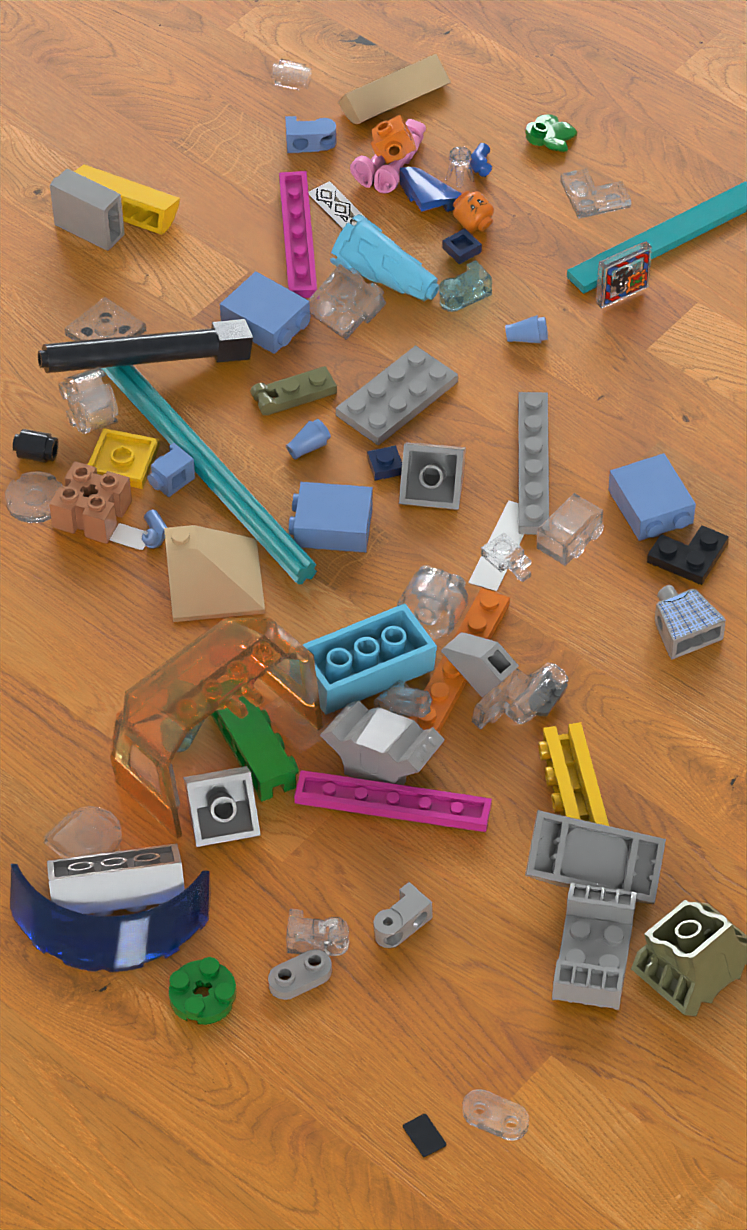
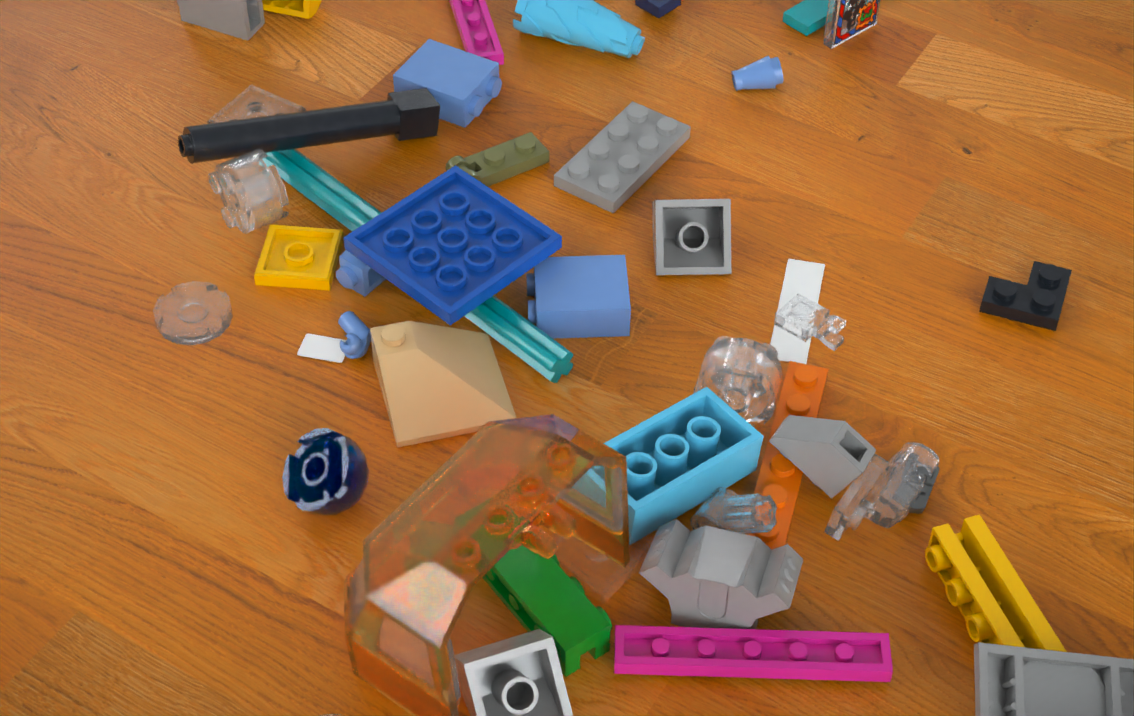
camera: 10 degrees left, 5 degrees down
(35, 445) = (186, 251): black brick -> none
(90, 502) = (266, 310): nougat brick -> none
(115, 637) = (325, 473): none -> clear blue cylinder
(238, 464) = (452, 244): none -> blue plate
(309, 438) = (537, 203): medium blue cone -> none
(346, 301) = (540, 62): clear plate -> none
(385, 462) = (628, 230): dark blue plate -> none
(465, 288) = (674, 39): clear light blue leg -> none
(533, 461) = (808, 216): light grey plate -> none
(570, 529) = (879, 281): clear brick -> none
(651, 497) = (964, 235): medium blue brick -> none
(687, 621) = (1060, 373): light grey torso -> none

